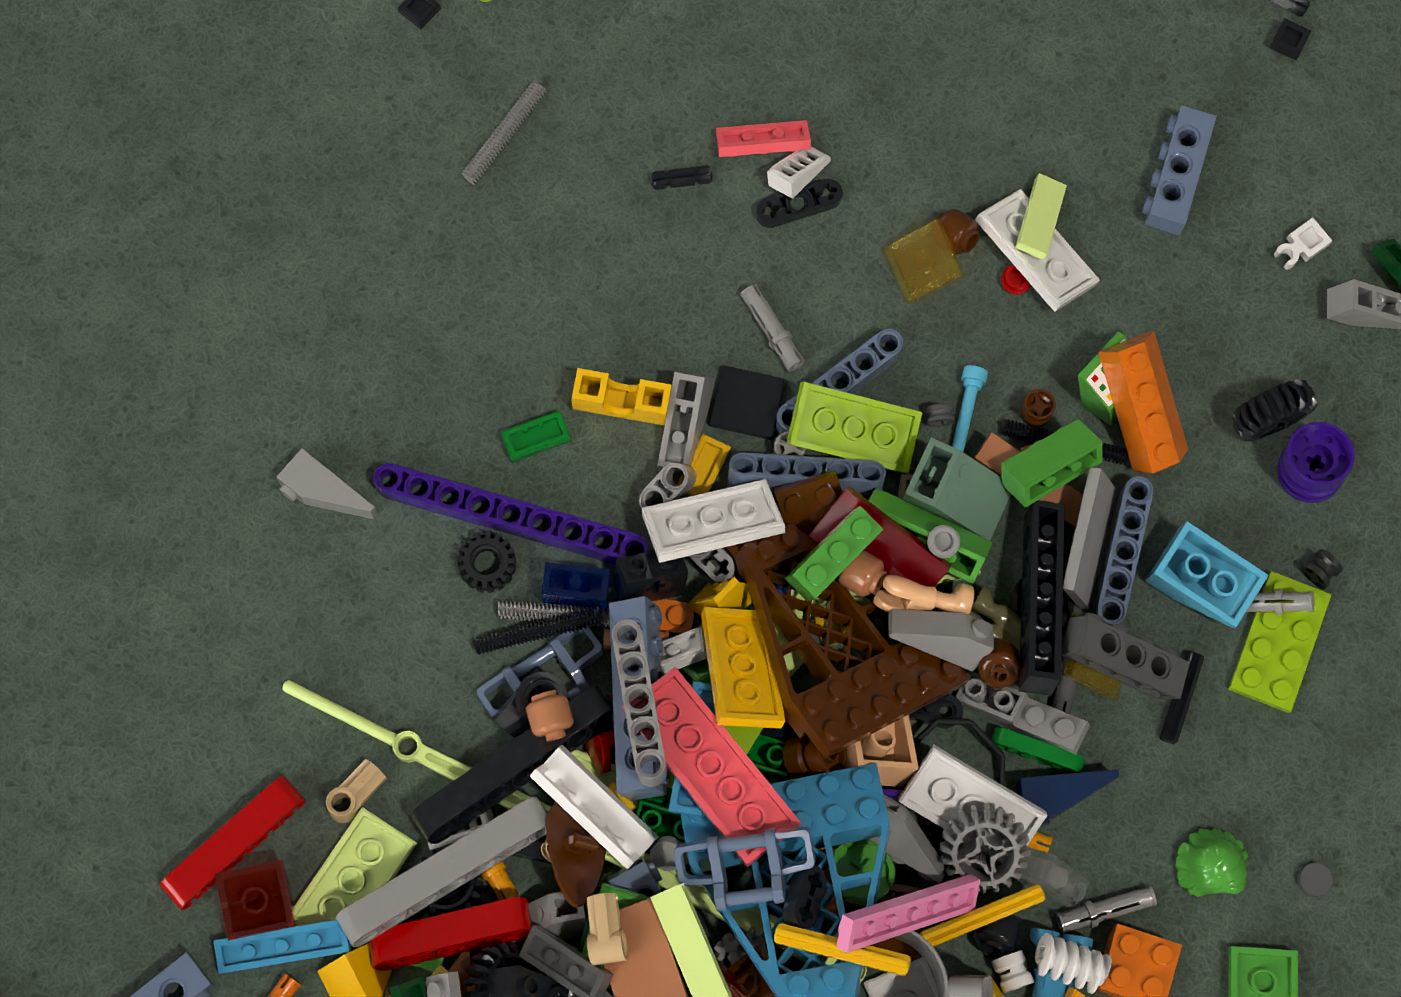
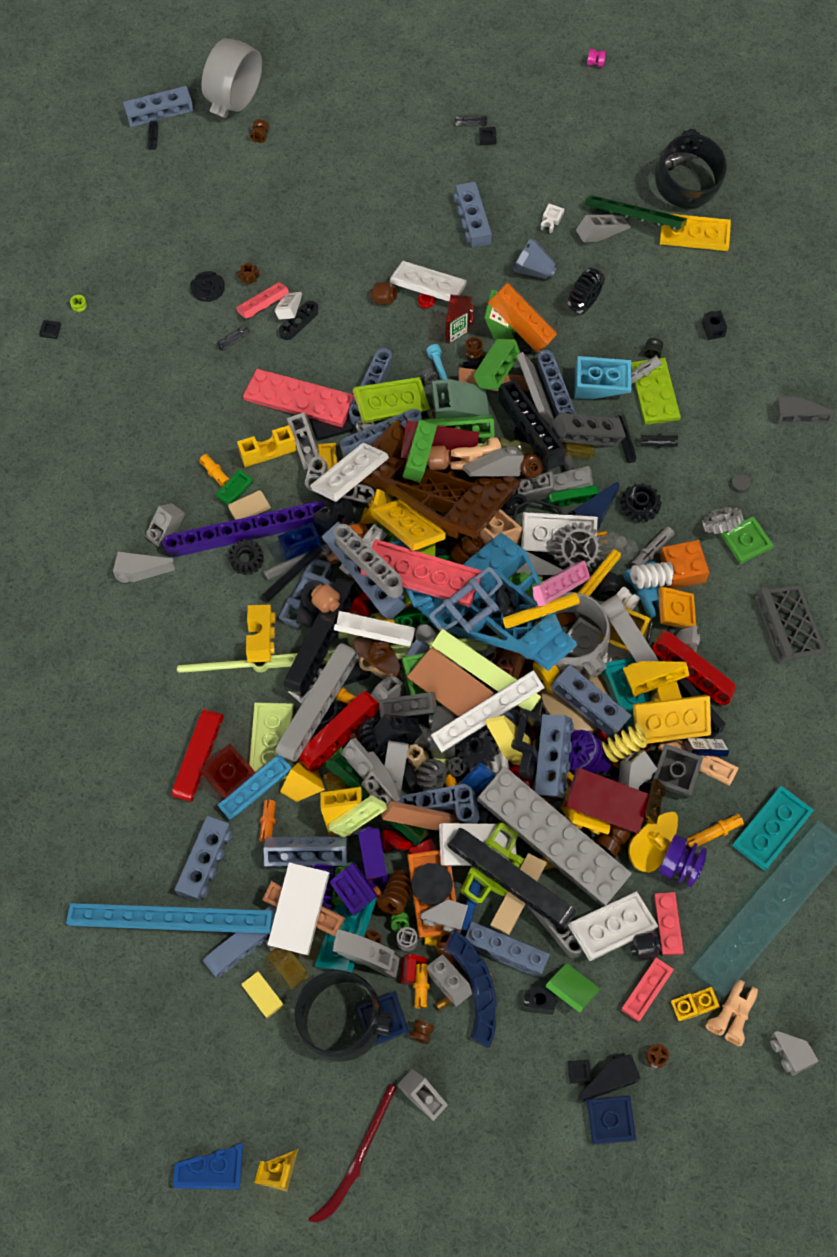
camera: 25 degrees left, 10 degrees down
(356, 788) = (246, 696): tan piece -> none
(399, 437) = (165, 522): none -> light grey slope
(418, 727) = (260, 646): none -> yellow arch
(502, 132) = (129, 362): light grey axle -> none
(523, 389) = (214, 470): none -> light orange pin
(538, 481) = (249, 506): none -> tan slope
(606, 939) = (421, 676): tan piece -> none
(691, 73) = (206, 291): none -> black tile
(720, 339) = (299, 397): none -> coral plate
(763, 85) = (248, 273): none -> reddish brown gear
(778, 337) = (320, 379): light grey pin -> none
(924, 261) = (377, 313): clear yellow plate -> none
(943, 541) = (468, 421): light grey tile -> none
(1041, 216) = (420, 266): yellowish green tile -> none
(1044, 343) = (458, 317): none -> clear red slope
(1152, 815) = (640, 493): none -> black gear
(1211, 863) = (688, 501): bright green hair -> none
(1226, 310) = (535, 261): none -> sand blue cone
(1232, 732) = (659, 440): none -> black pin
(1242, 931) = (722, 520): none -> light grey gear
(1324, 448) = (620, 303): dark purple wheel -> none

